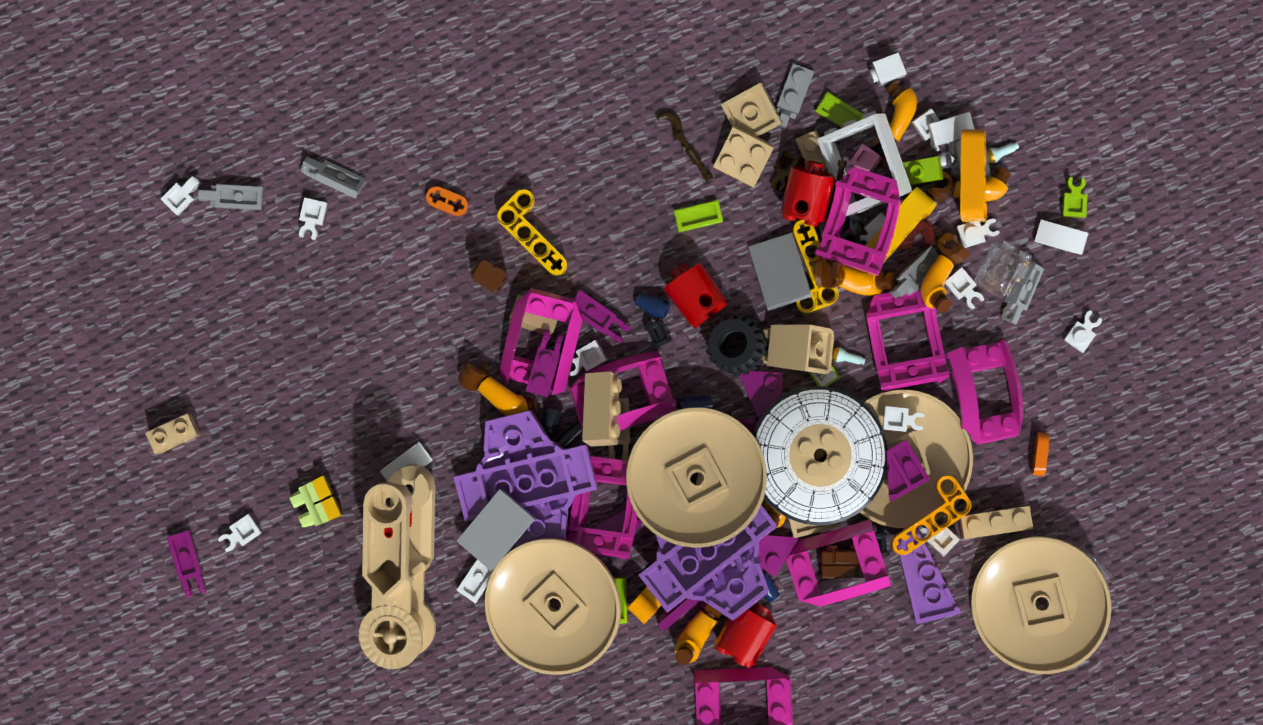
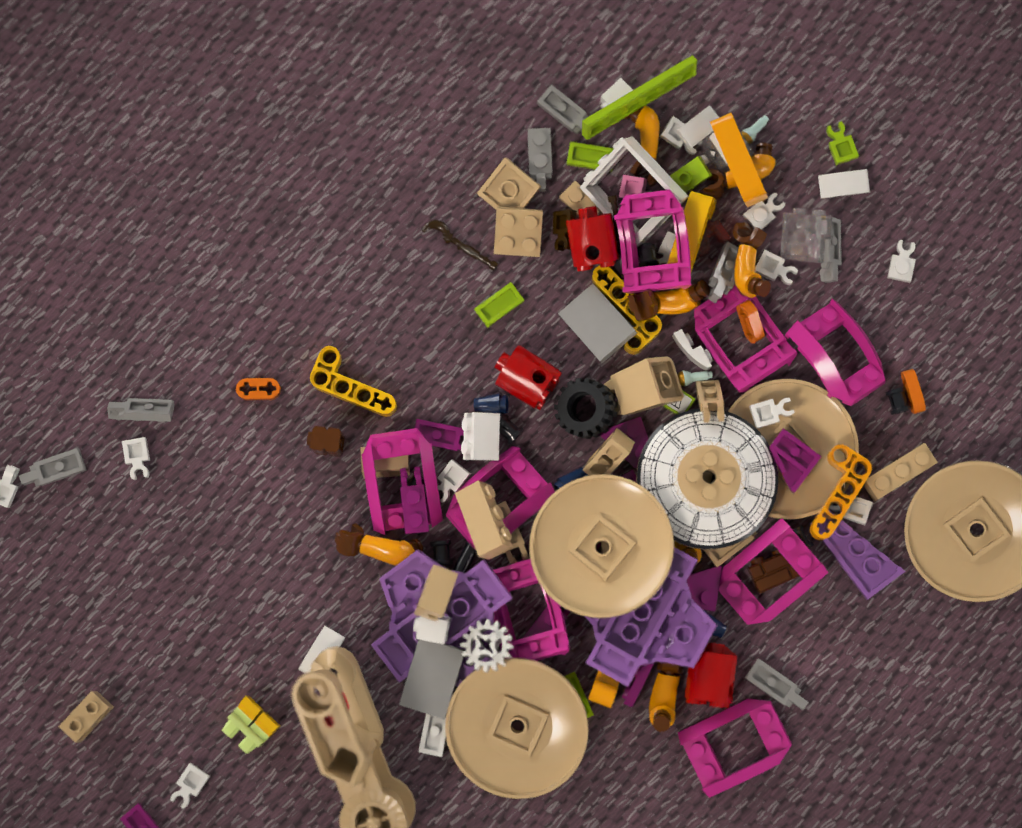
camera: 20 degrees left, 5 degrees down
(514, 486) = (432, 630): none -> white brick
(530, 457) = (436, 593): none -> tan hinge
(547, 526) = (480, 652): none -> white gear
(630, 331) = (481, 436): none -> white brick
(739, 396) = (609, 454): none -> tan brick
(801, 665) = (775, 685): none -> light grey hinge
(835, 62) = (562, 109): none -> light grey hinge
(852, 384) = (710, 399): none -> tan hinge
(858, 339) = (698, 356): none -> white slope
(907, 79) = (639, 97): none -> lime tile
(920, 328) = (750, 321): none -> orange beam
(1023, 457) = (898, 401): none -> black bush

